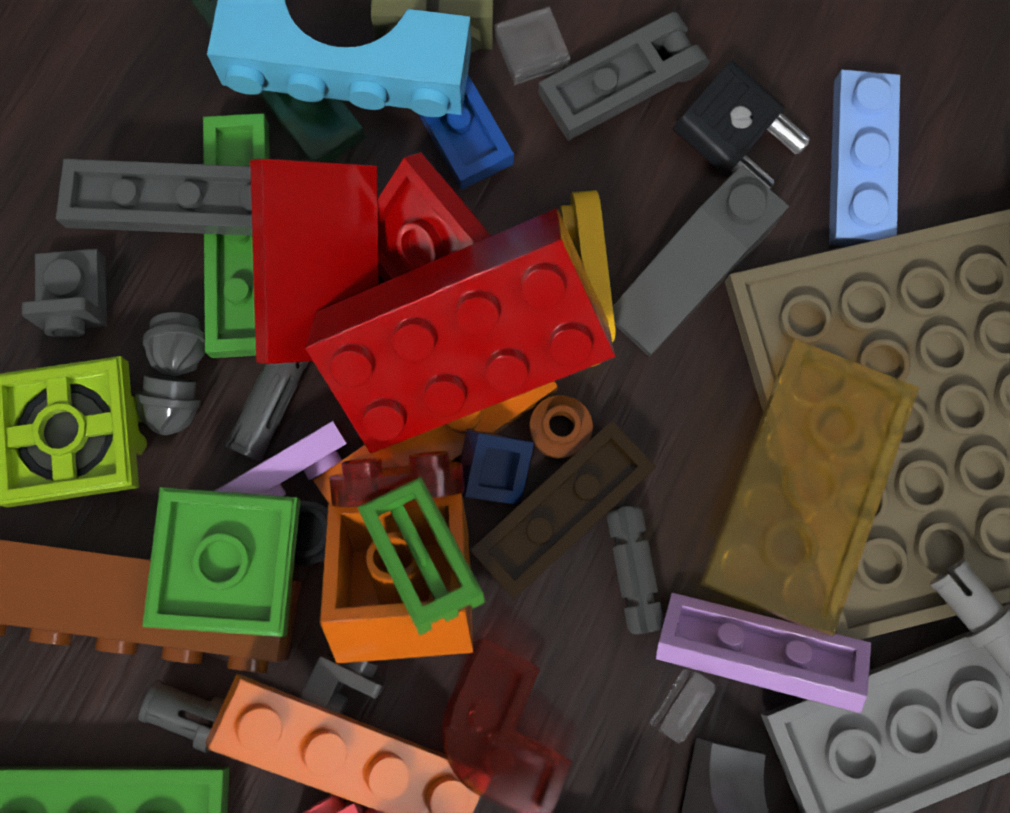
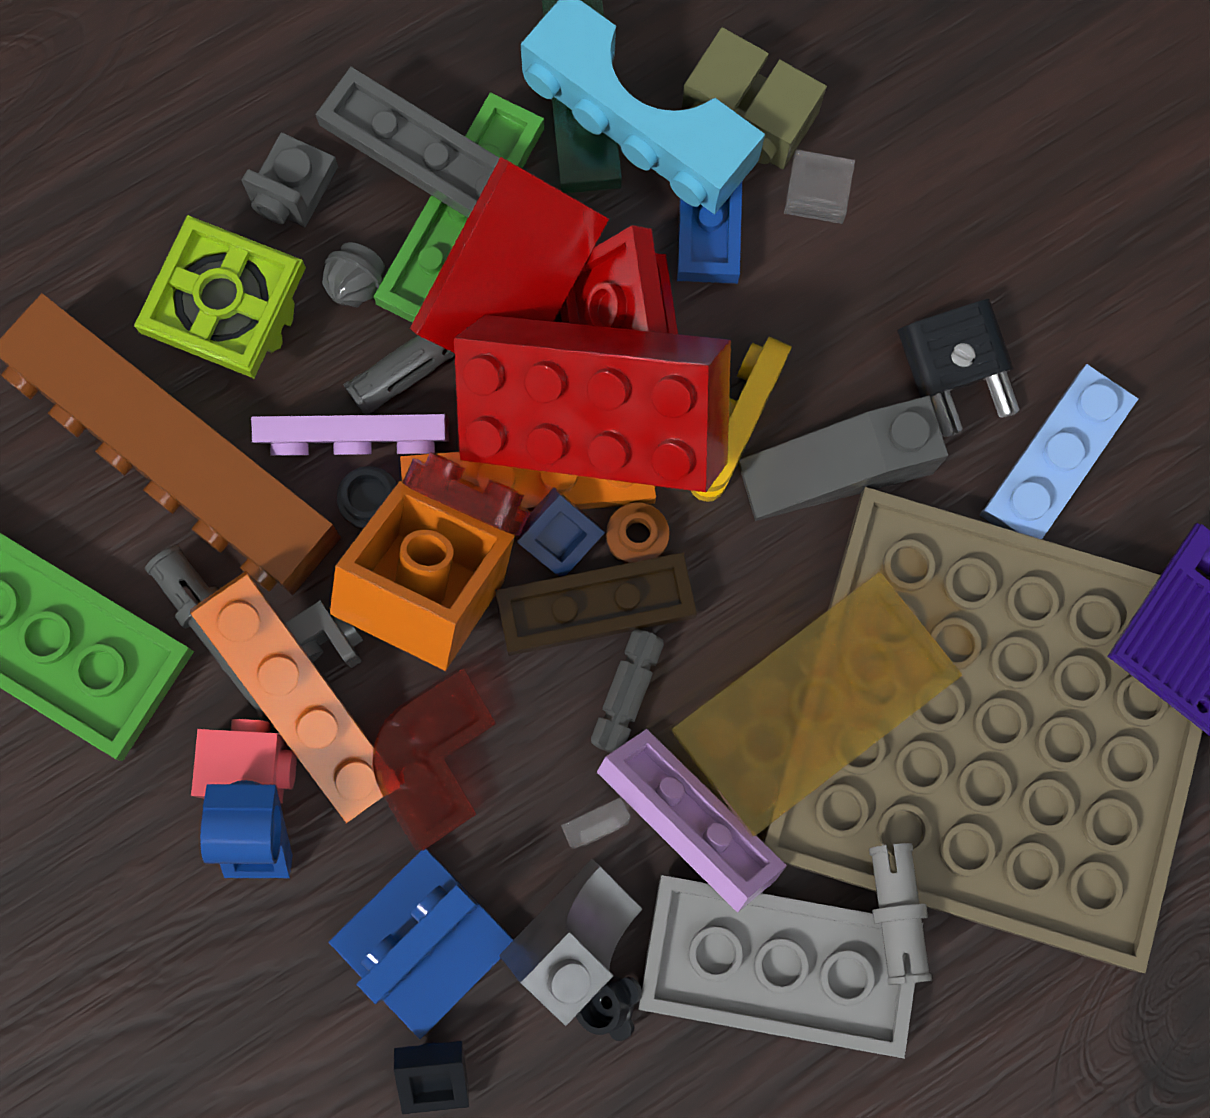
camera: 30 degrees right, 0 degrees up
(167, 403) = (317, 321): dark grey plate -> none
(222, 562) = (287, 476): bright green tile -> none
(445, 604) = (443, 607): bright green tile -> none
(621, 75) = (882, 258): dark grey plate -> none

